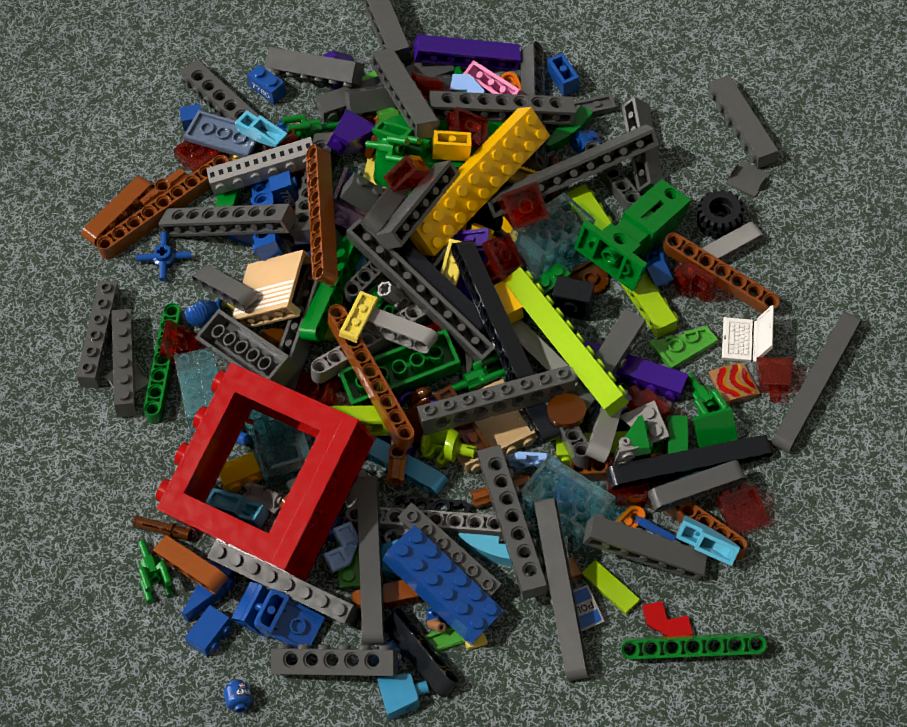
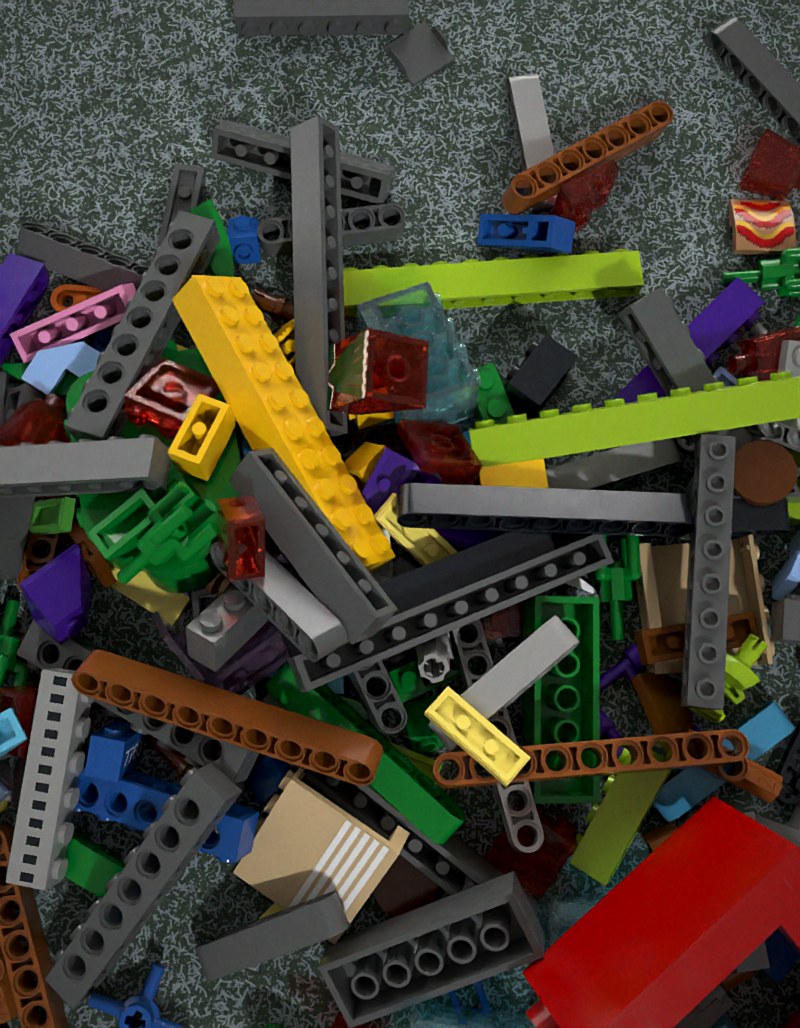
camera: 75 degrees left, 20 degrees up
(202, 312) = (298, 987): blue hair -> none
(419, 394) = (612, 683): reddish brown arm -> none
(563, 74) = (104, 214): blue brick -> none
(592, 273) = (494, 339): reddish brown tile -> none
(638, 233) = (474, 232): green brick -> none
(681, 348) = (674, 261): bright green wing -> none
(723, 202) = (477, 91): black tyre -> none
(739, 337) = (699, 166): white piece -> none

